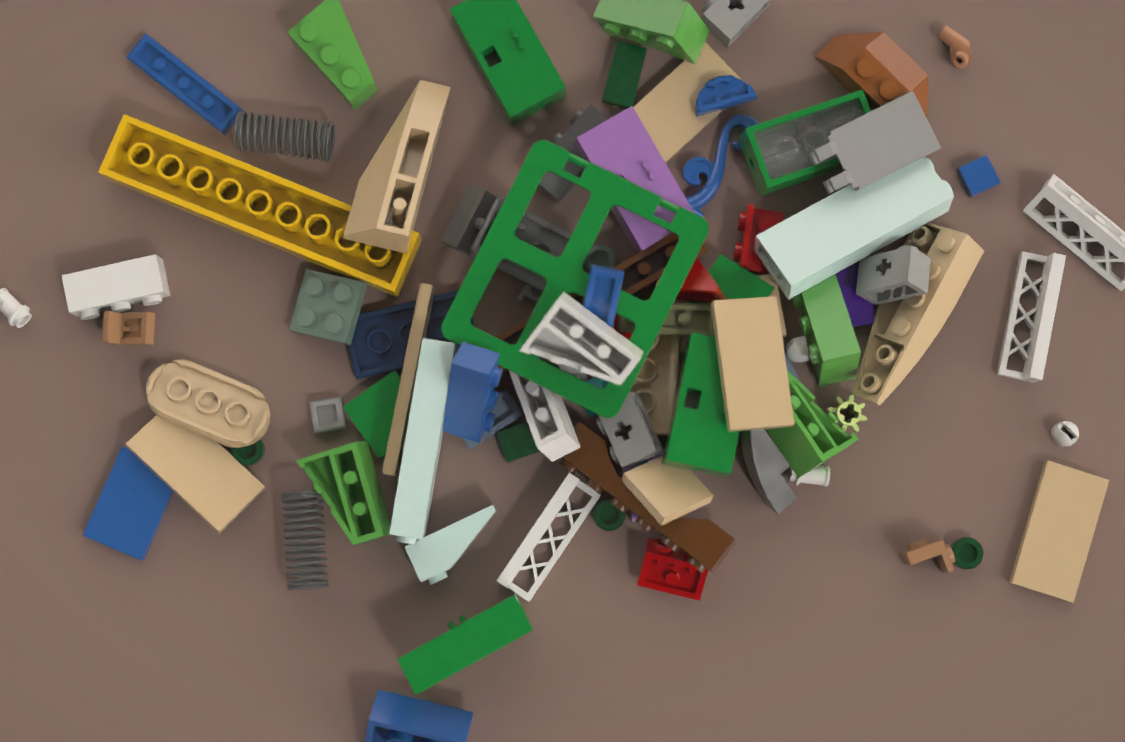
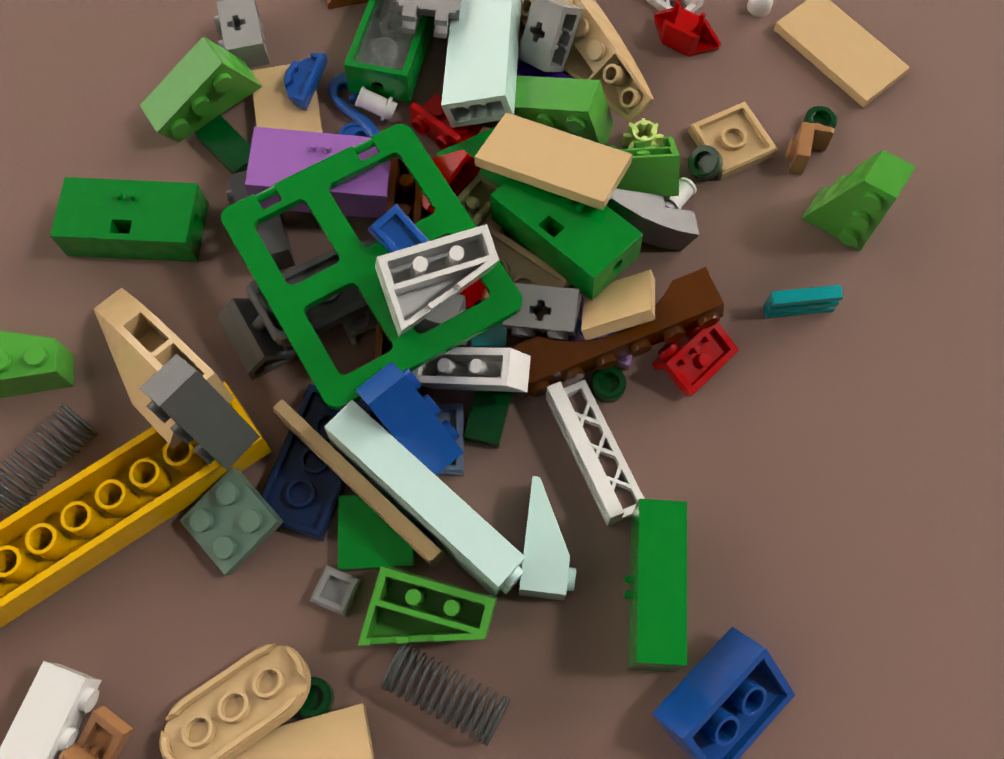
camera: 55 degrees left, 15 degrees down
(371, 247) = (198, 413): none -> dark grey brick
(739, 171) = (376, 104): none -> white pin
(774, 628) = (802, 301): none -> teal tile
(858, 479) = (705, 162): none -> dark green tile
(885, 625) = (859, 200): none -> bright green wedge
(899, 488) = (736, 137): none -> tan tile
(984, 386) = (685, 31): none -> red piece

